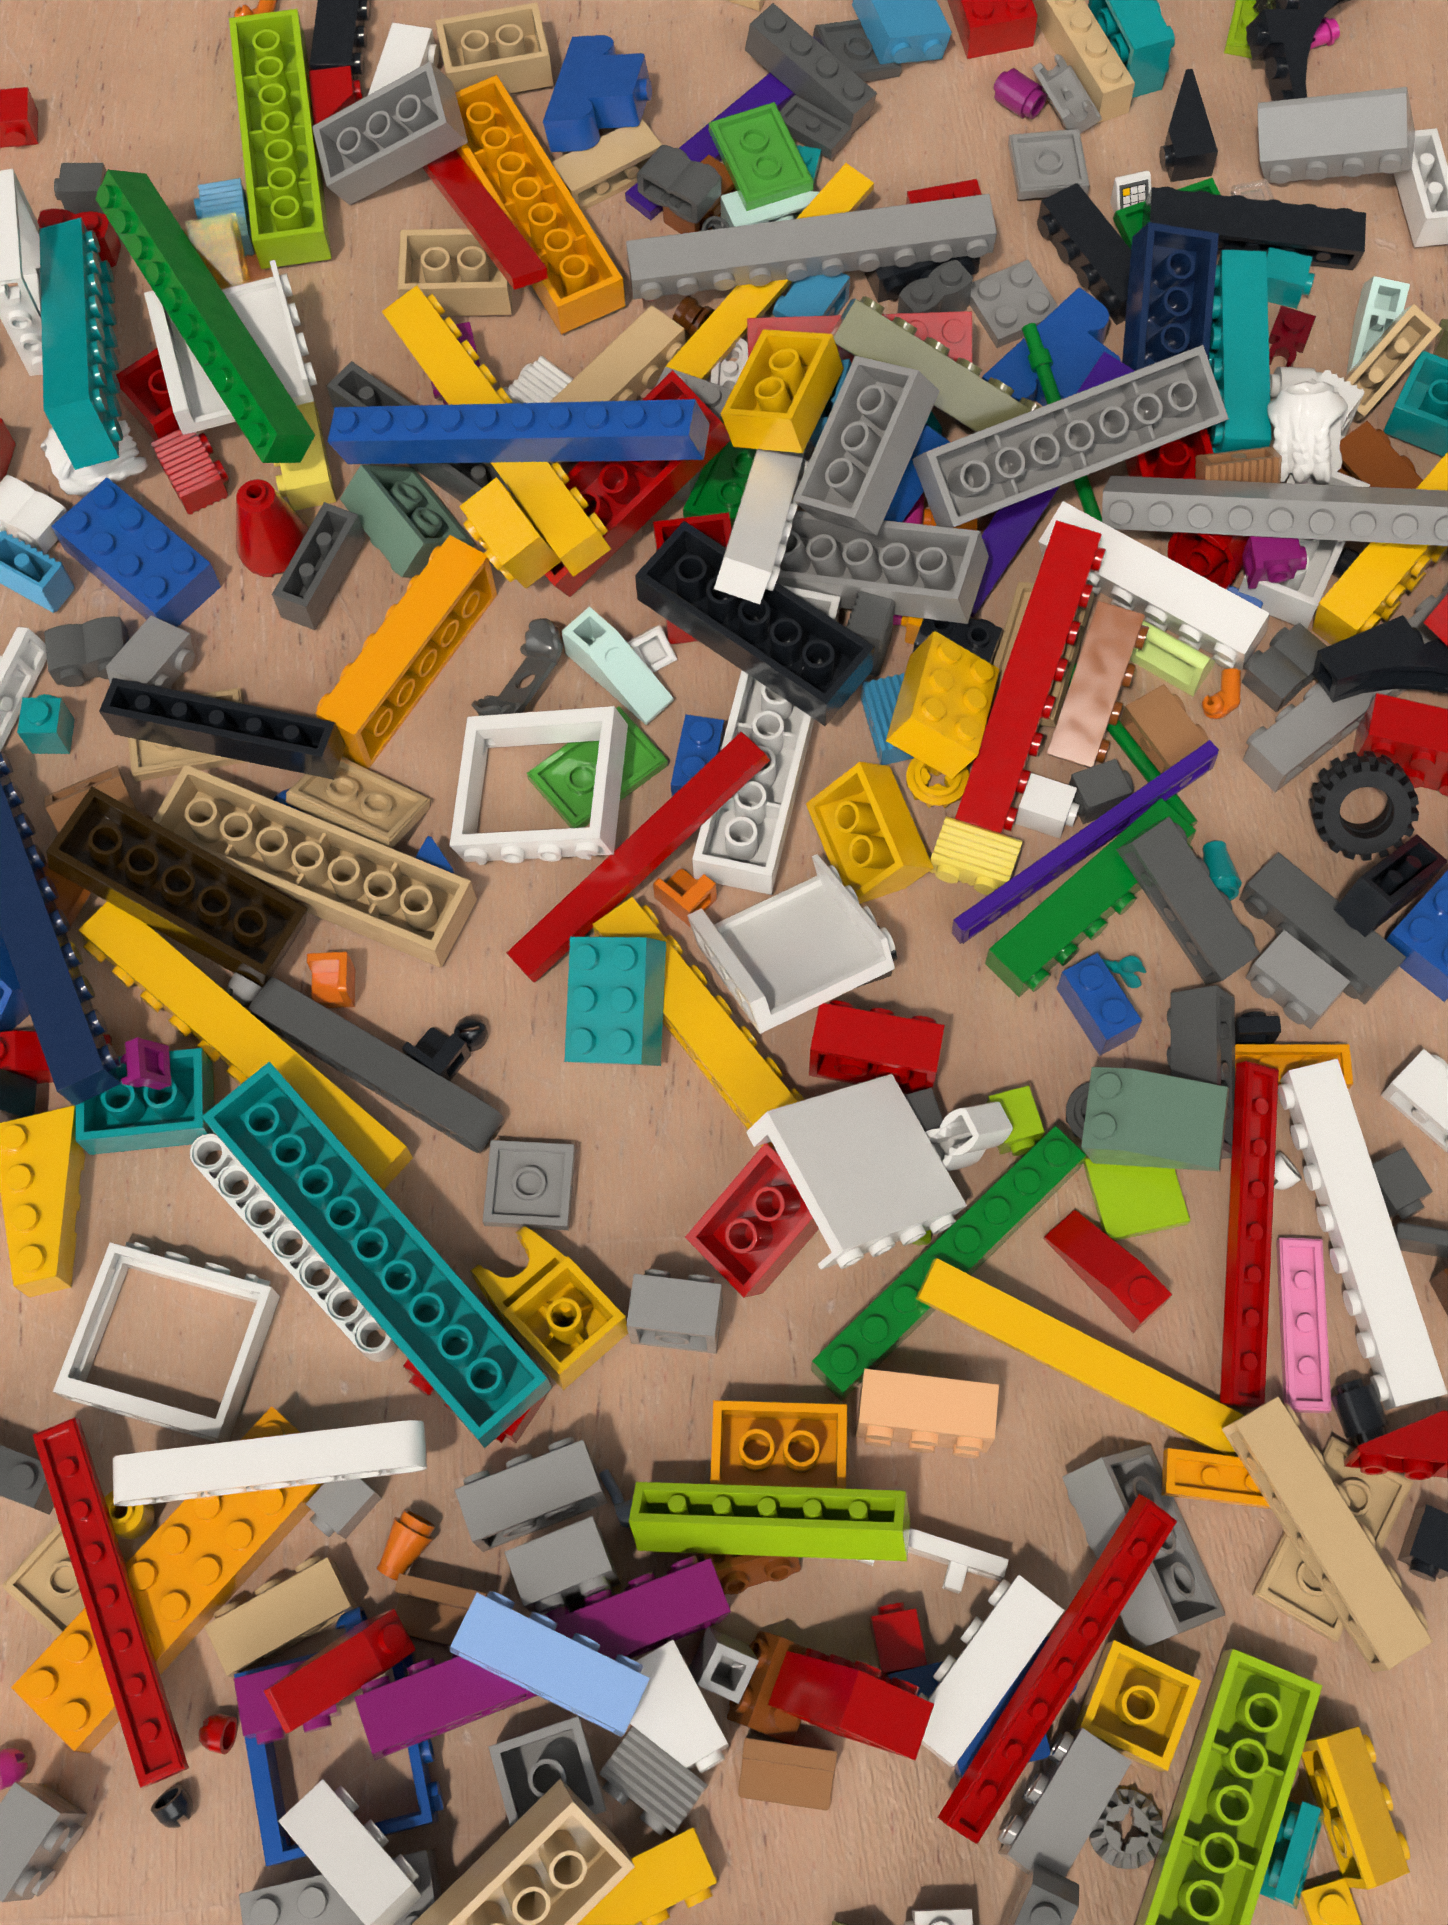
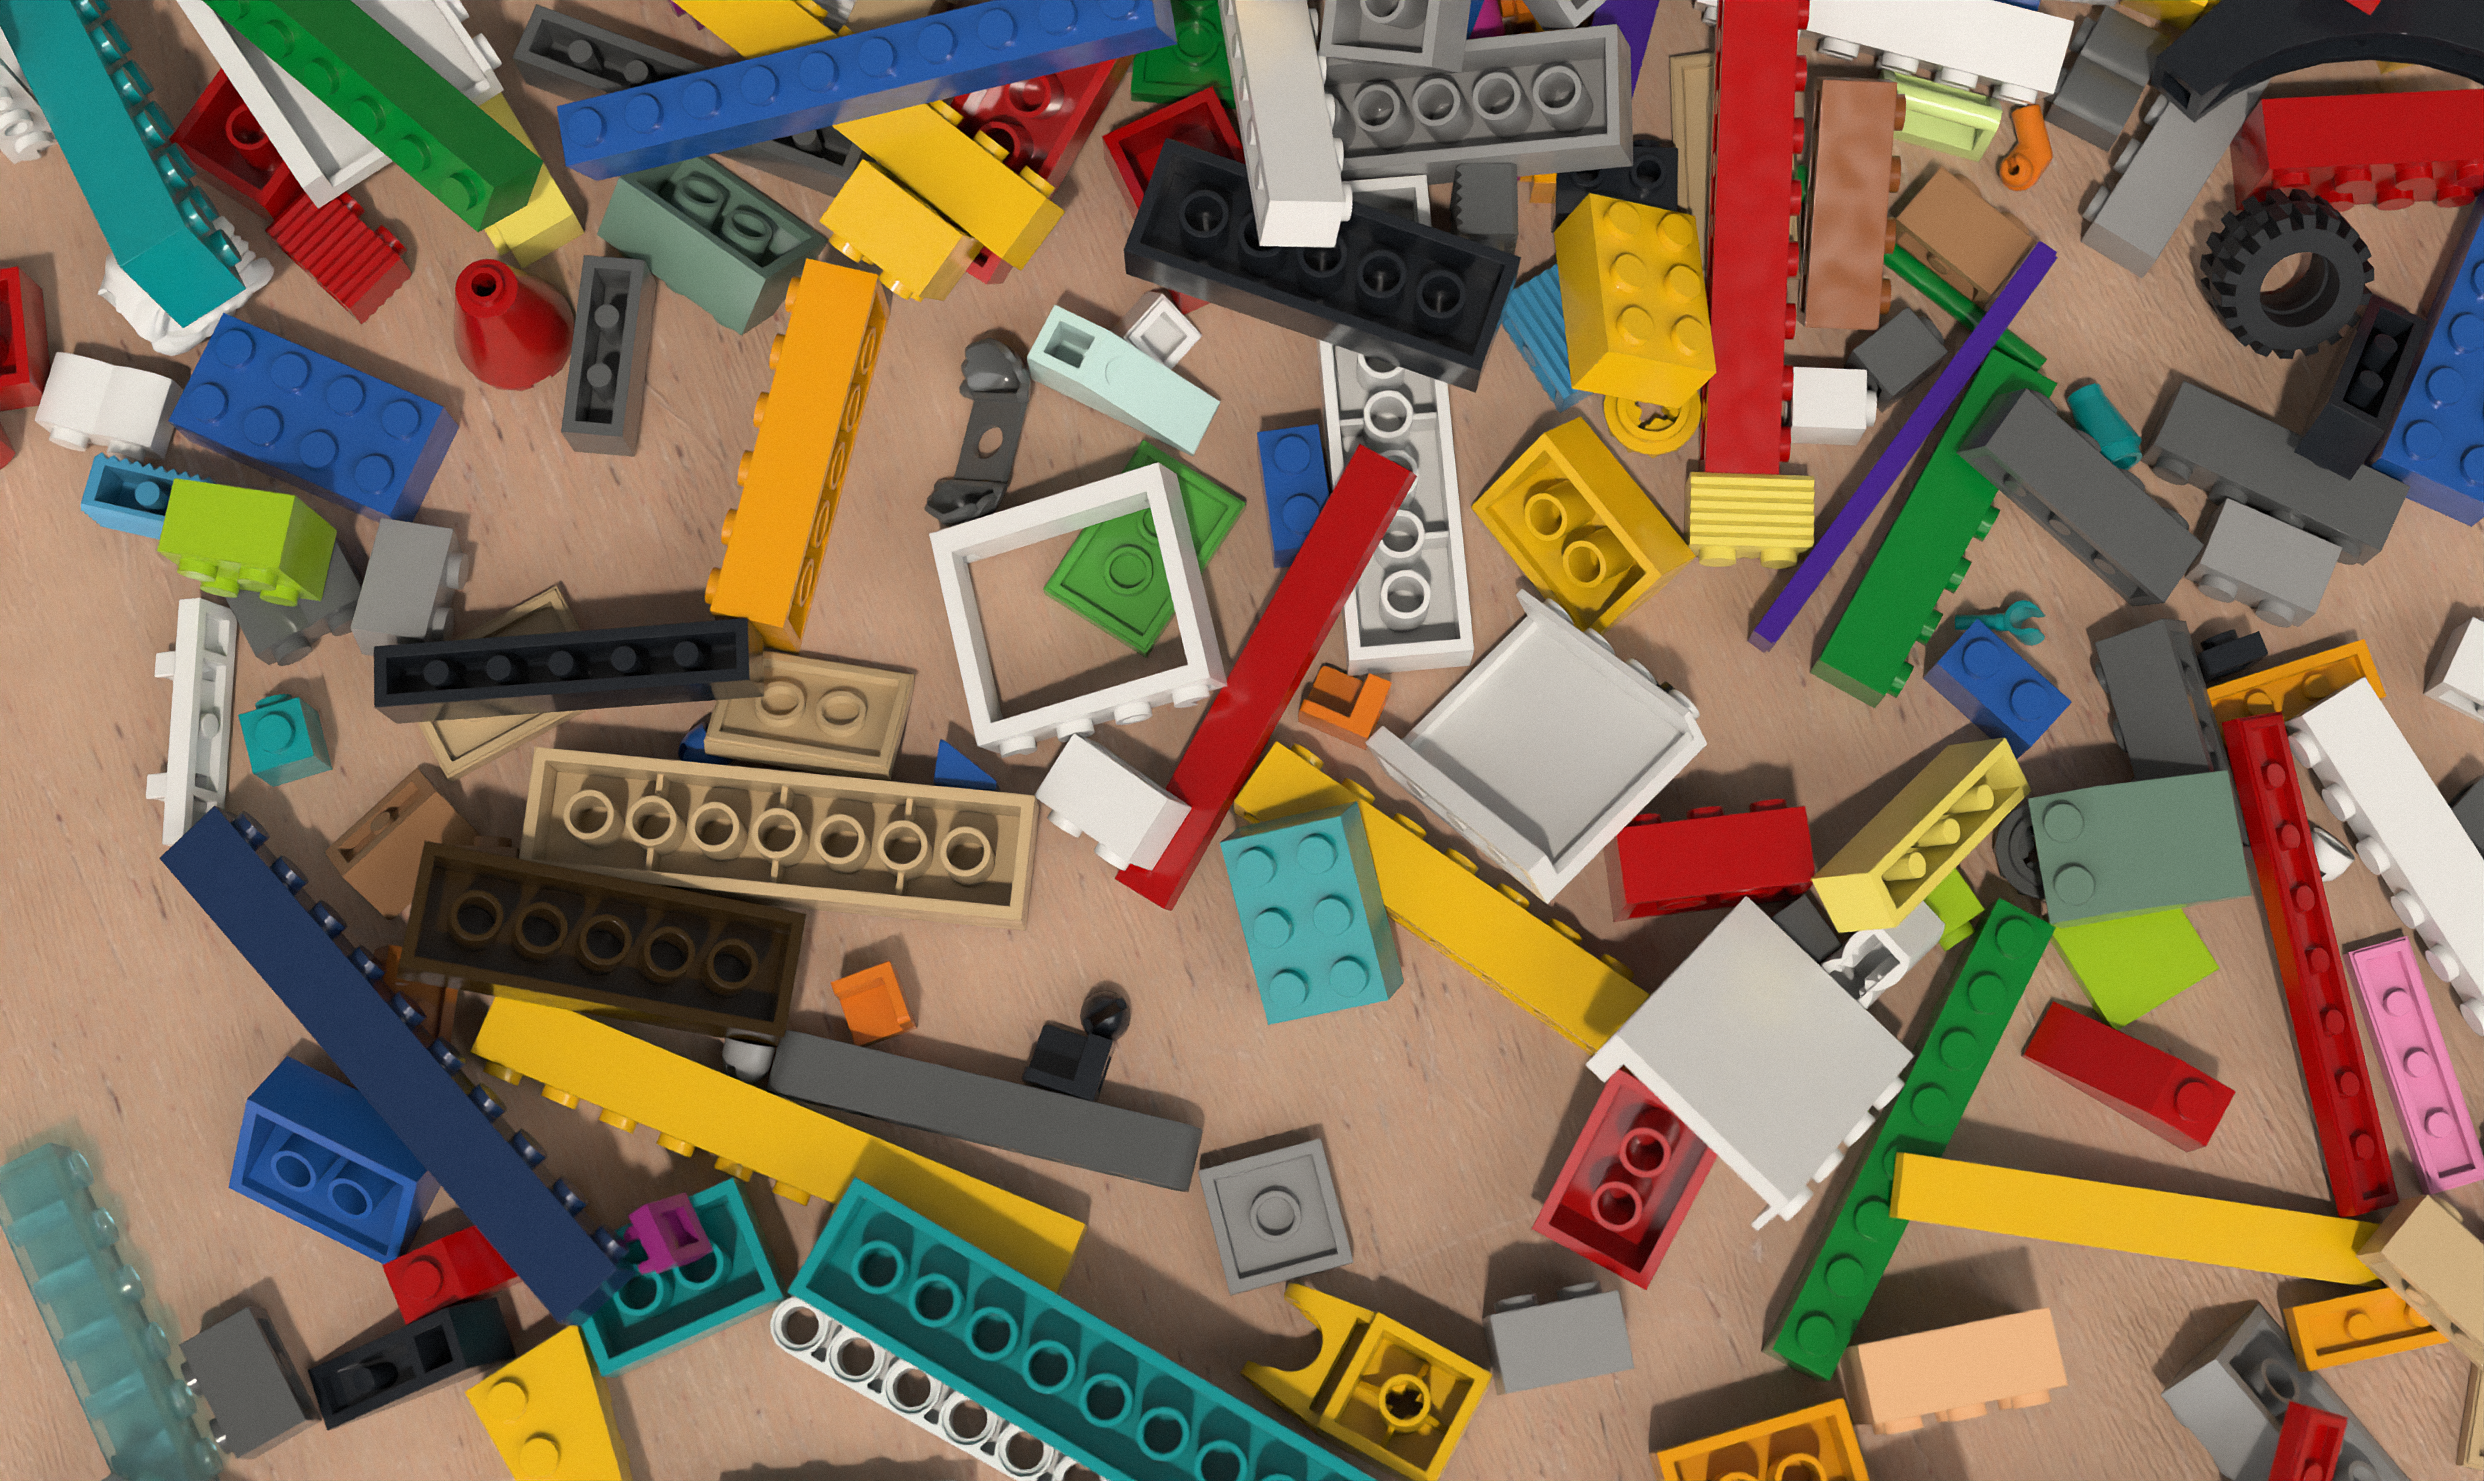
camera: 20 degrees left, 10 degrees up
(64, 597) = (247, 541): none -> lime brick
(518, 903) = (1111, 803): none -> white brick
(1015, 1069) = (1921, 835): none -> light yellow brick

